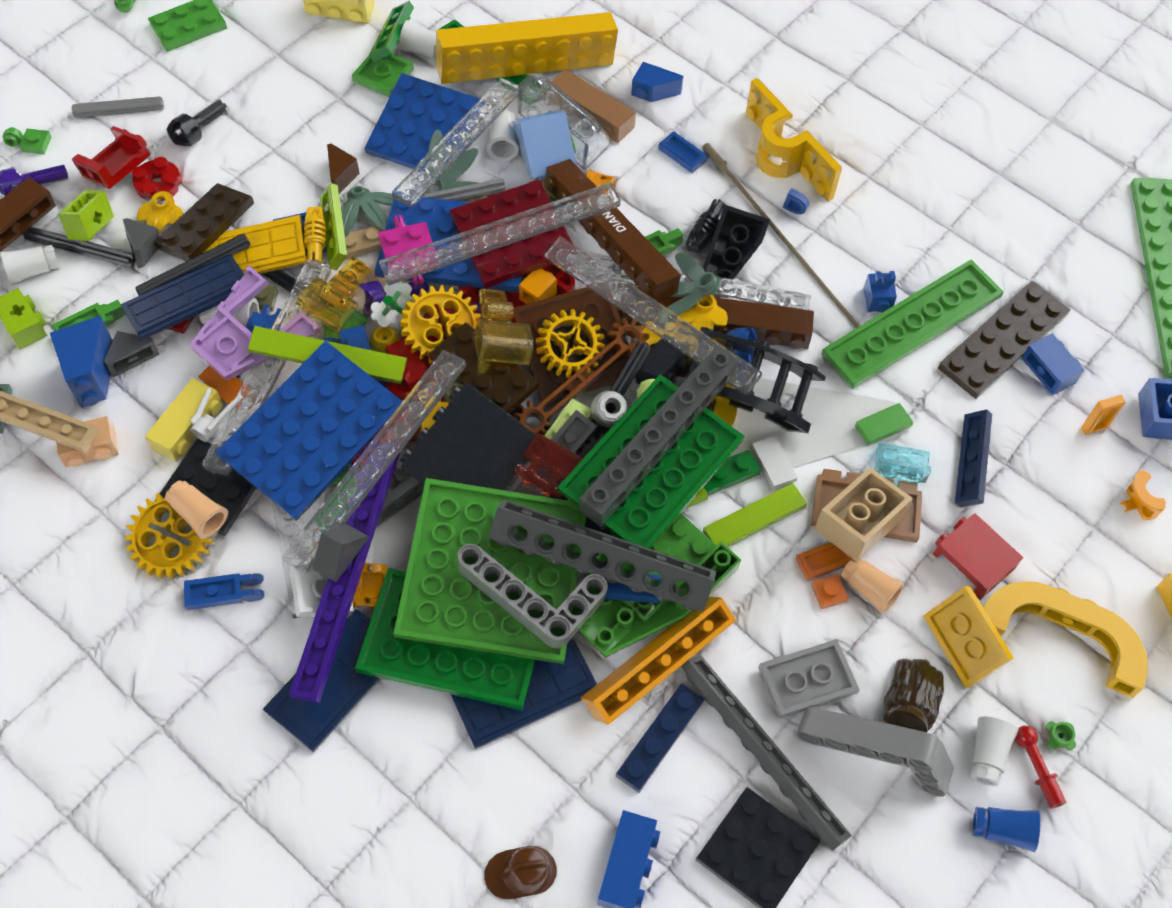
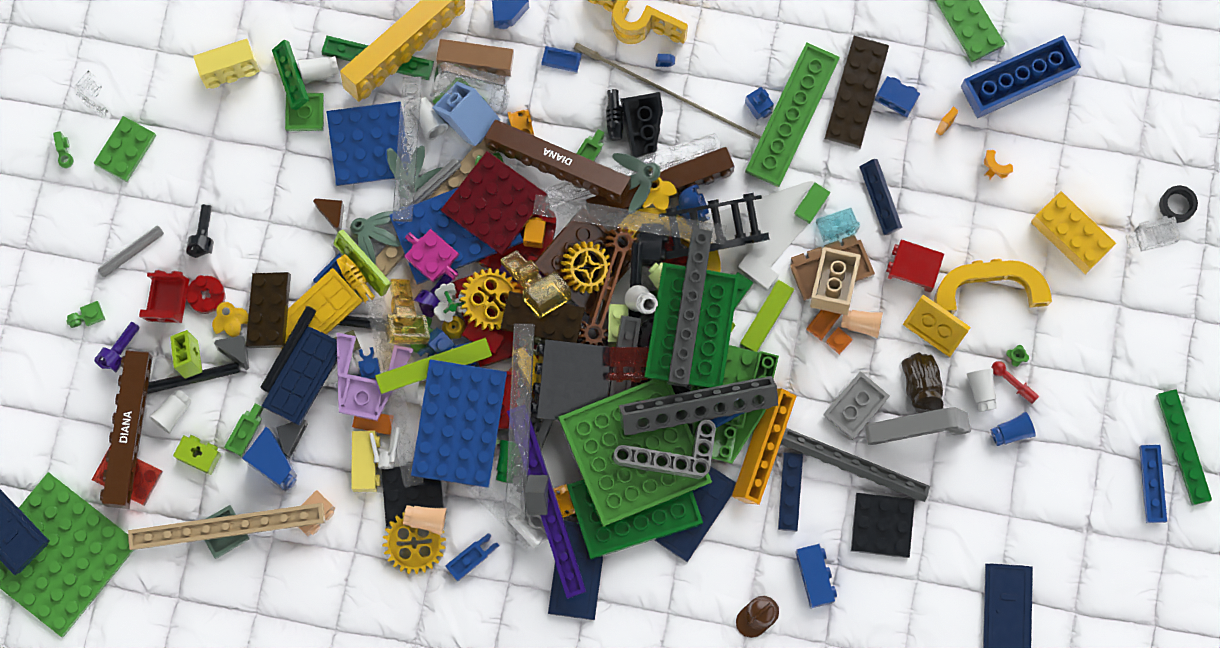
camera: 30 degrees left, 15 degrees up
(499, 233) = (492, 213): clear plate -> none

